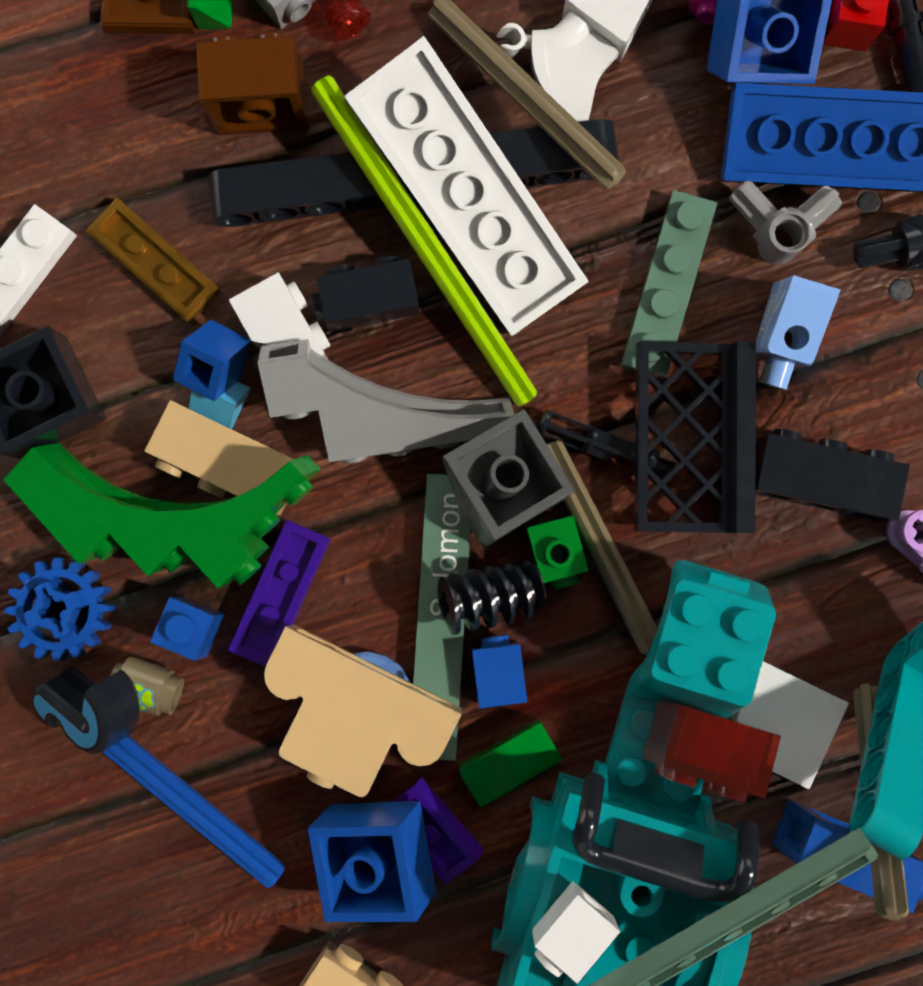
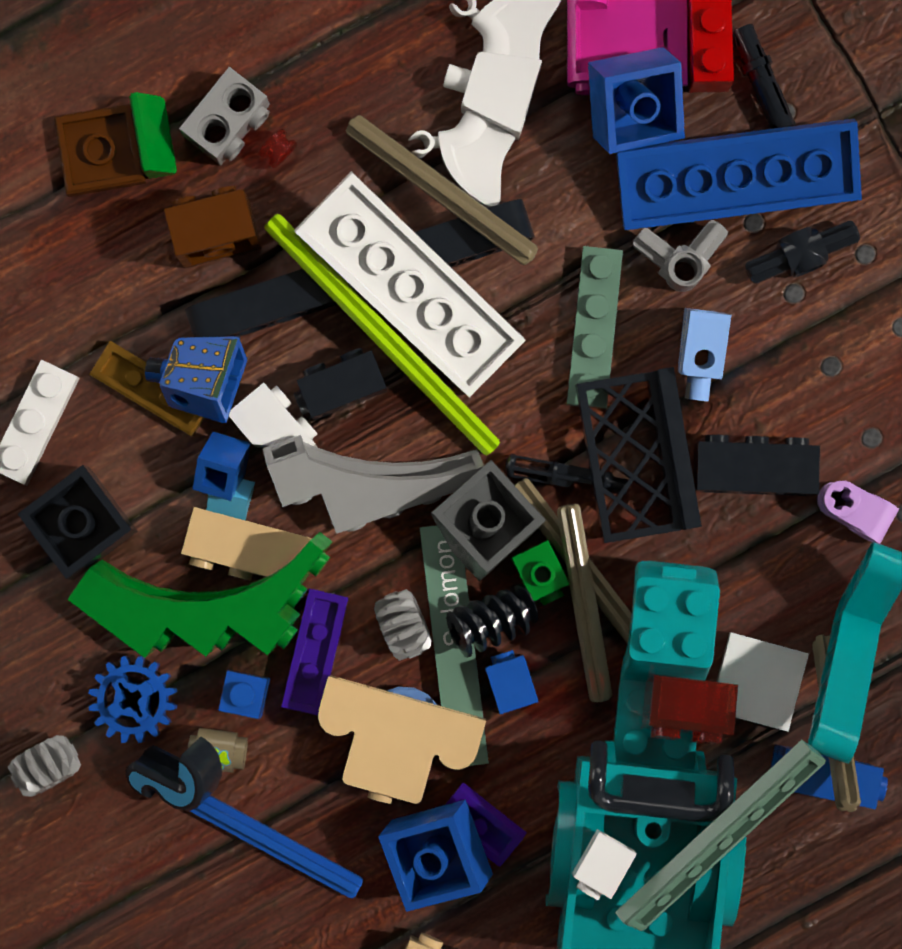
camera: 10 degrees left, 0 degrees up
(208, 250) = (200, 375): none -> blue torso
(385, 582) = (402, 624): none -> light grey gear
(509, 762) = (534, 757): green slope -> none
(601, 595) = (584, 602): none -> dark tan axle

